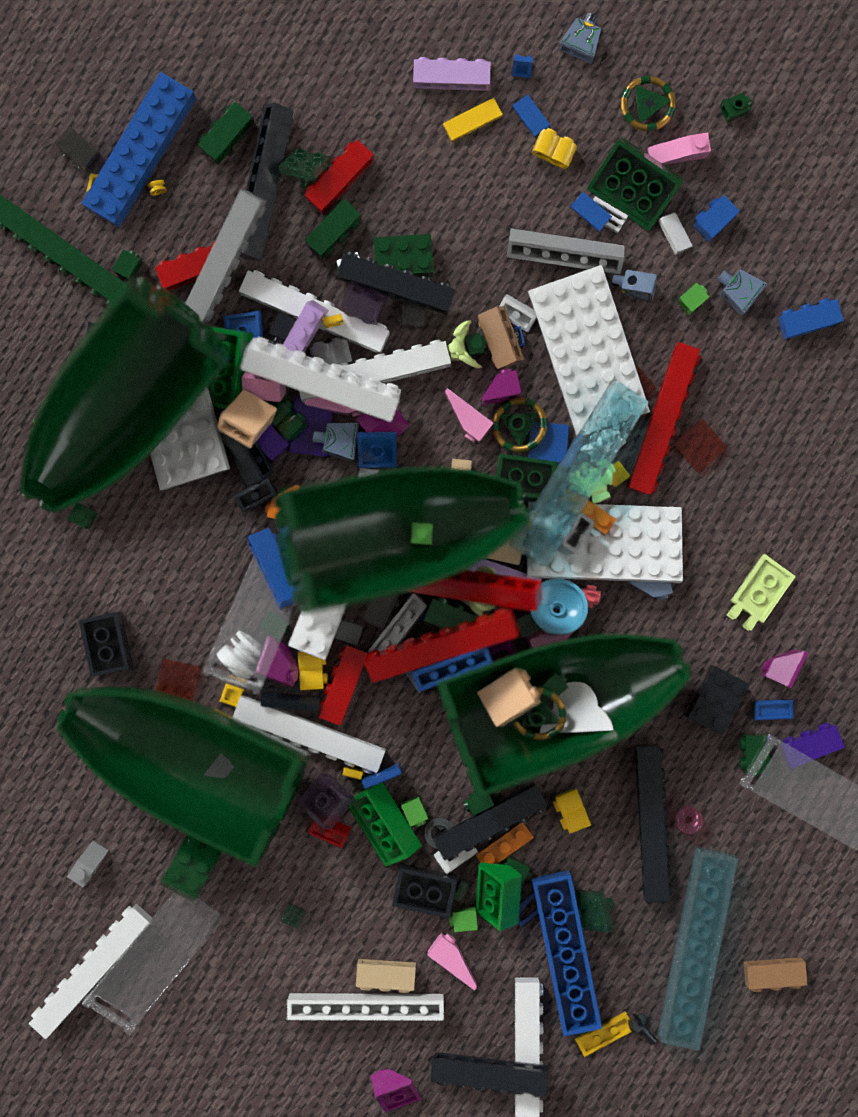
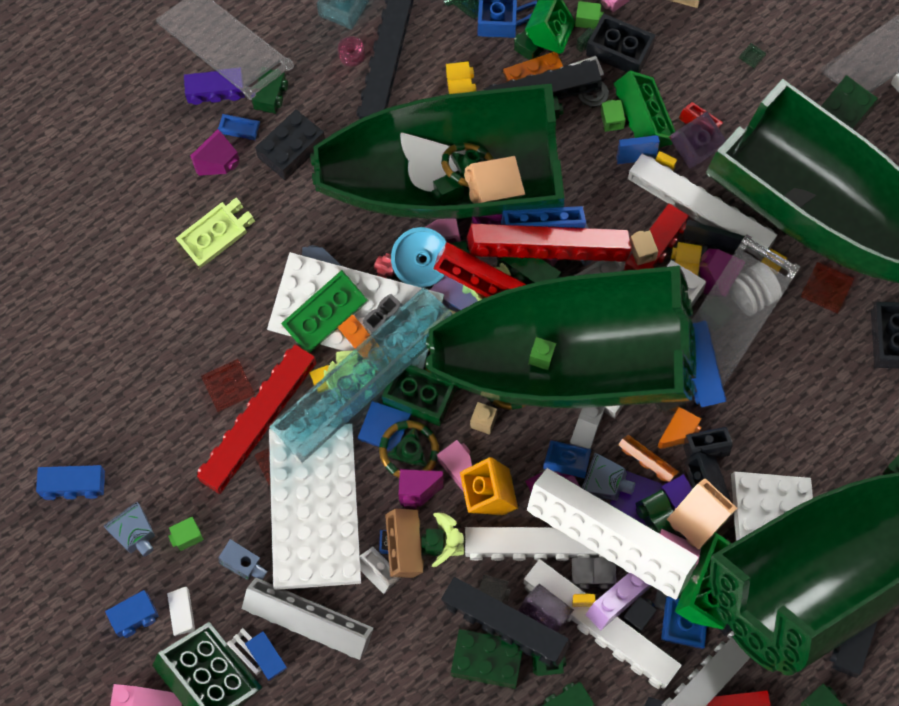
camera: 160 degrees left, 20 degrees down
(303, 469) = (648, 459): none -> orange plate
(354, 669) = (643, 247): none -> tan brick
(438, 399) = (488, 488): none -> light orange slope
(632, 532) = (324, 312): none -> green tile

